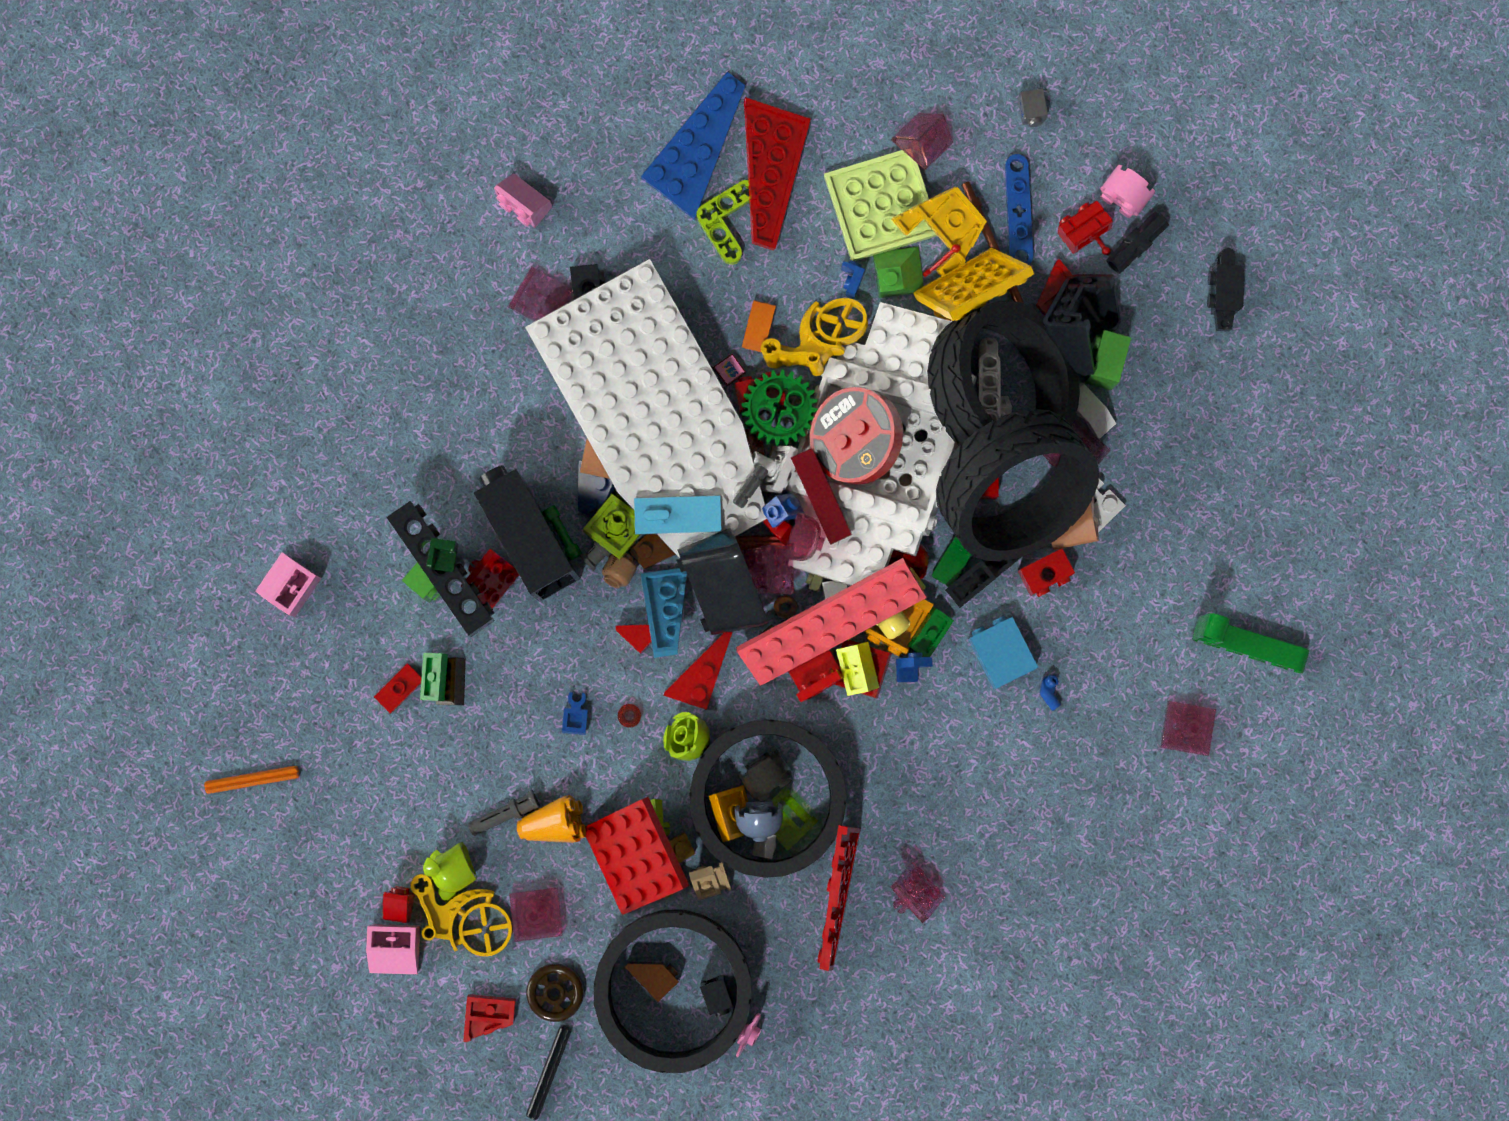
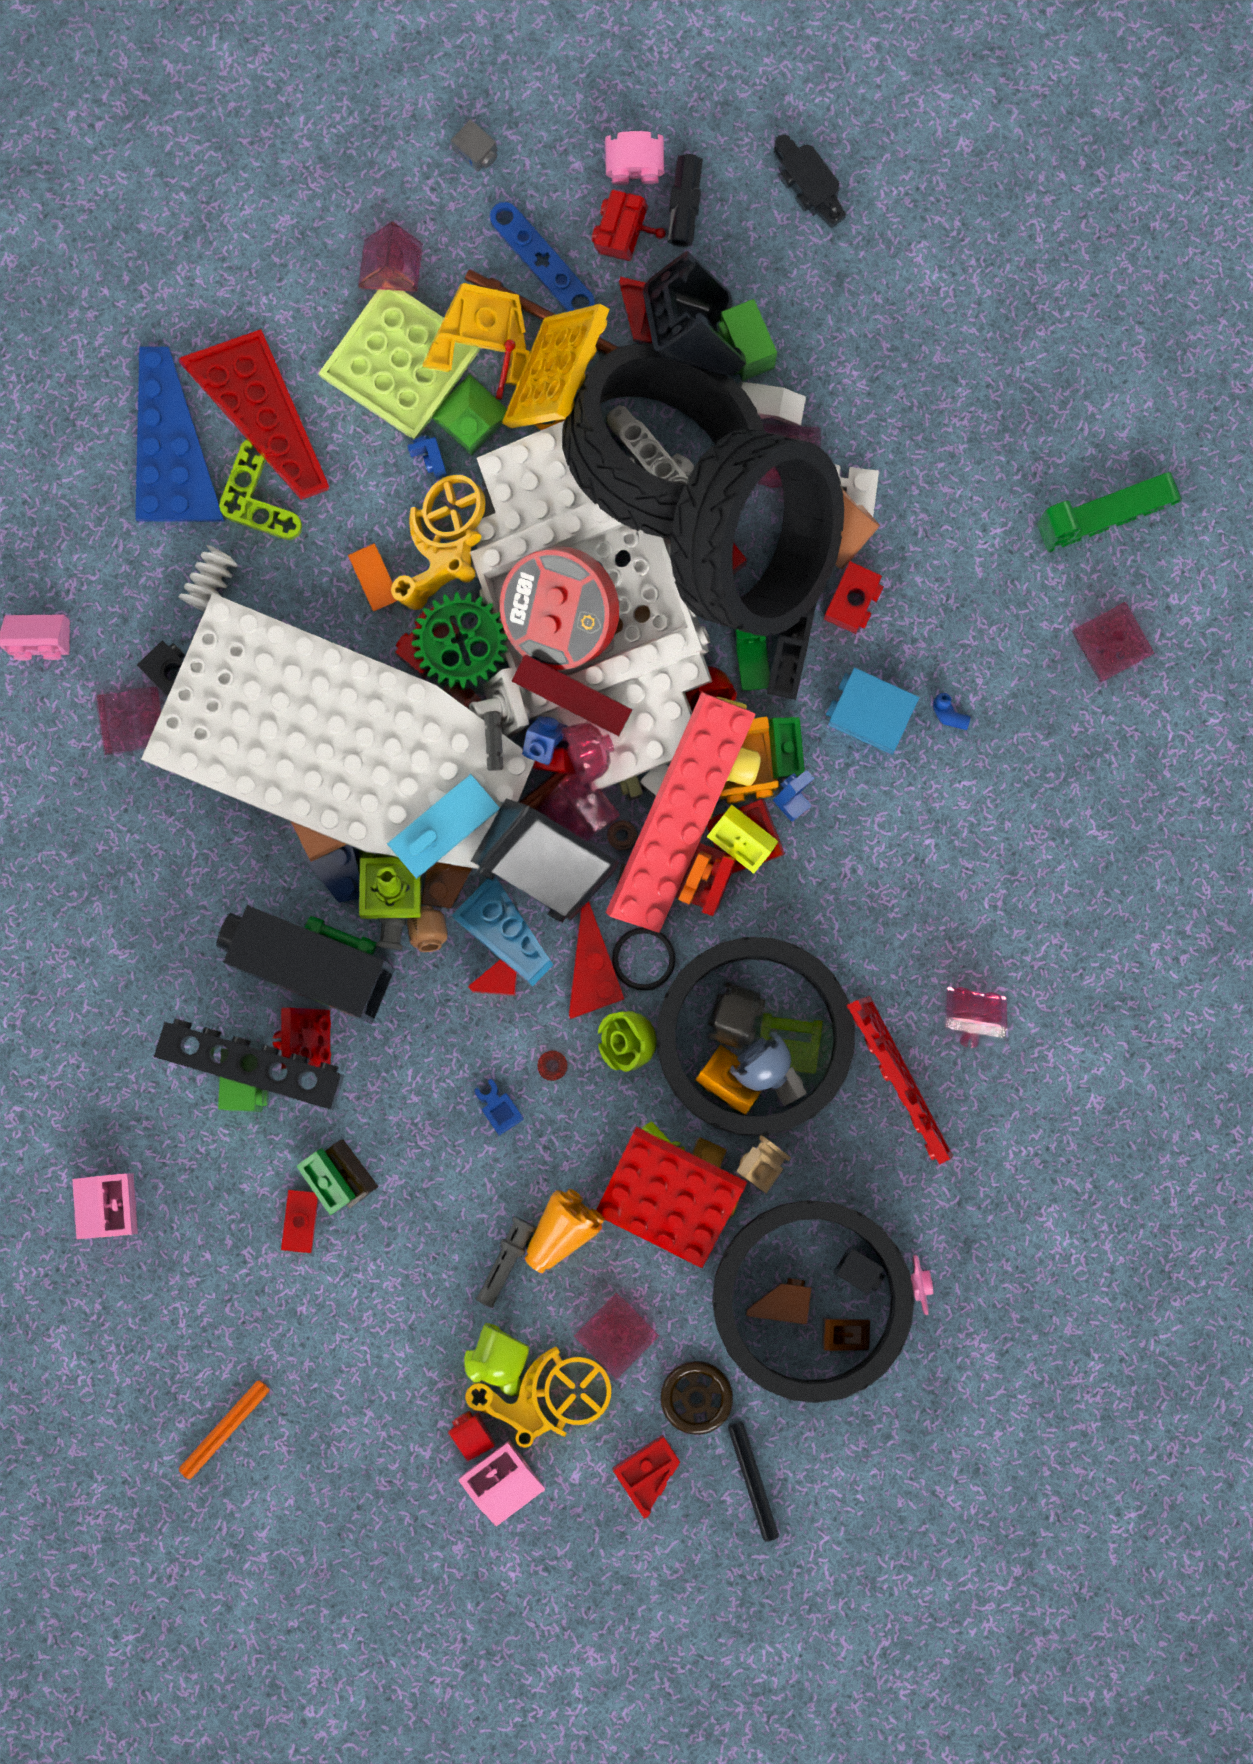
camera: 30 degrees left, 0 degrees up
(442, 555) = (241, 1049): dark green panel -> none
(656, 248) = (208, 579): none -> white piece
(677, 1027) = (845, 1334): none -> reddish brown slope
(718, 704) = (622, 977): none -> black tyre
(729, 370) = (379, 643): tile -> none
(816, 668) = (700, 871): none -> orange plate

